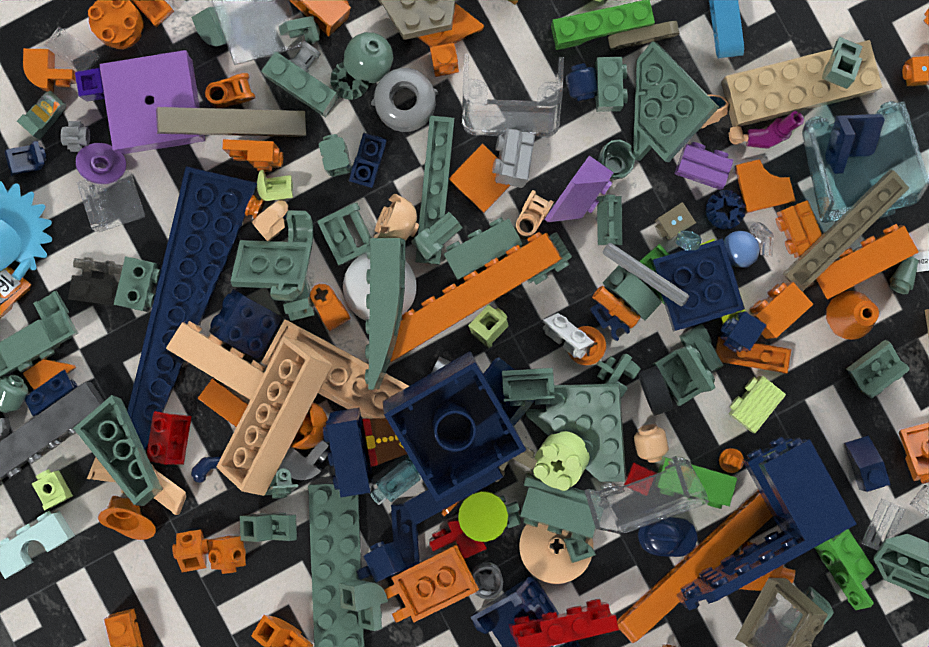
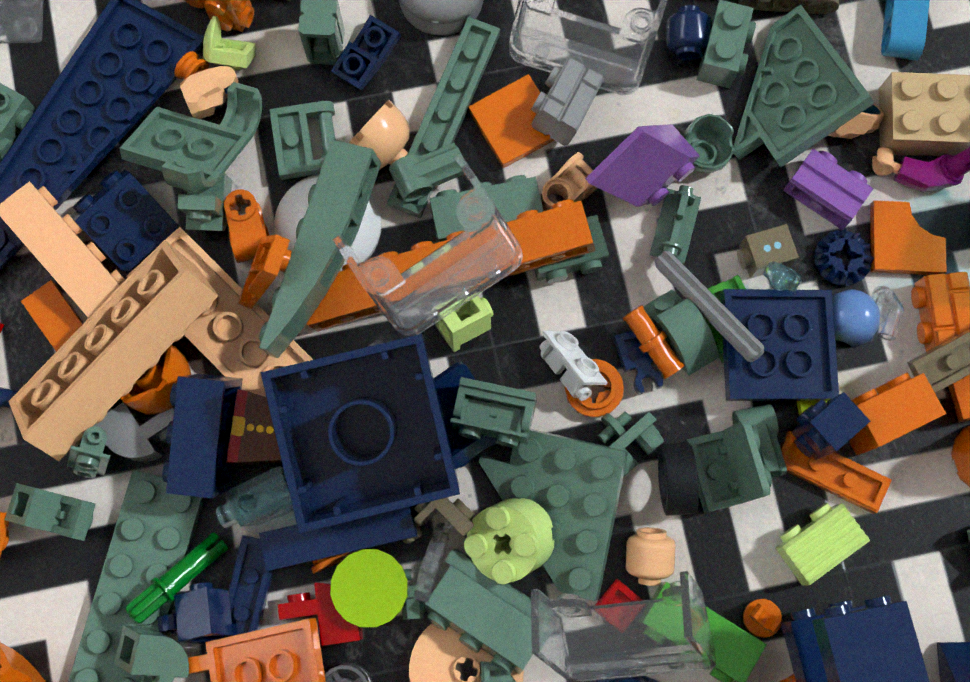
camera: 15 degrees right, 10 degrees down
(353, 334) = (268, 260): none -> orange wing
(360, 544) = (175, 579): none -> green axle
(477, 309) = (448, 275): none -> clear windscreen
(517, 488) = (432, 562): none -> clear tile

